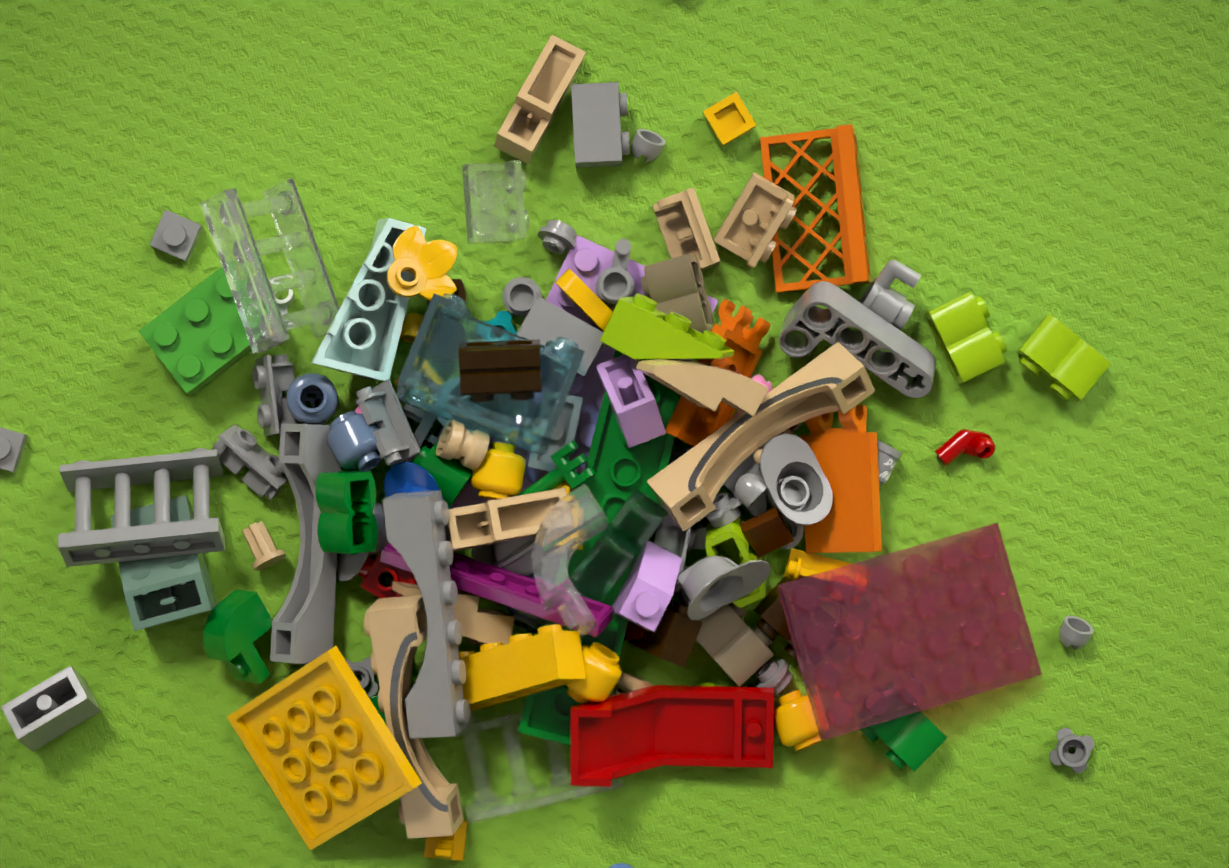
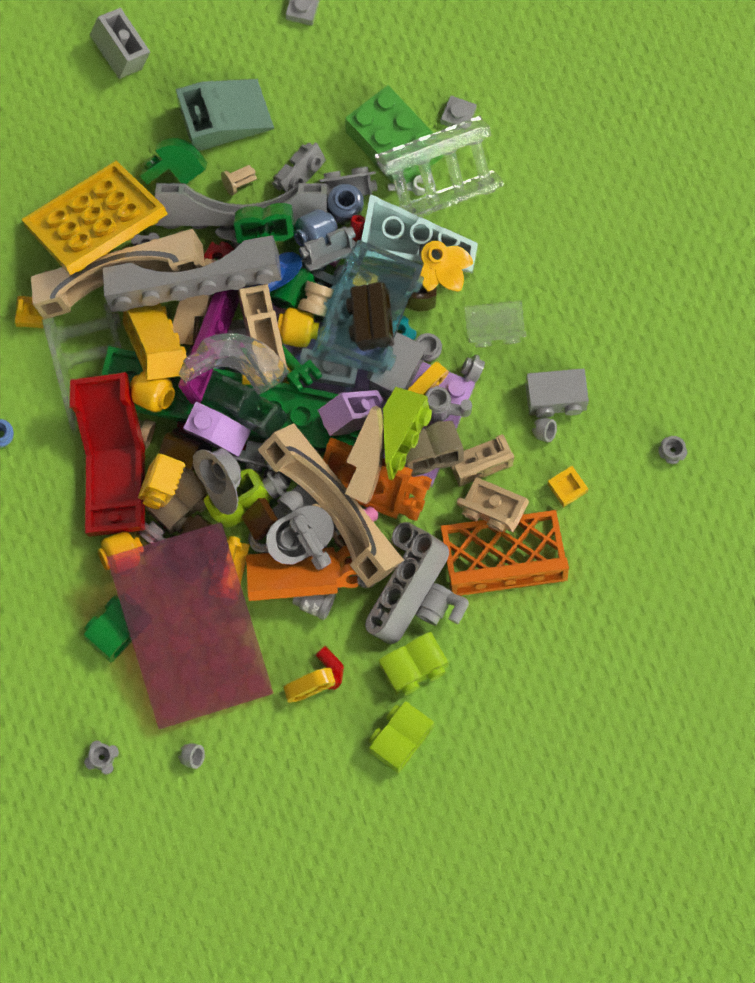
camera: 90 degrees right, 15 degrees down
(142, 541) = (241, 103): light grey fence -> none
(349, 384) = (357, 224): none -> red arm
(539, 99) = (573, 351): tan slope -> none
(724, 663) = (161, 481): none -> yellow brick
(808, 465) = (310, 541): none -> light grey axle
(993, 474) = (309, 685): none -> yellow beam

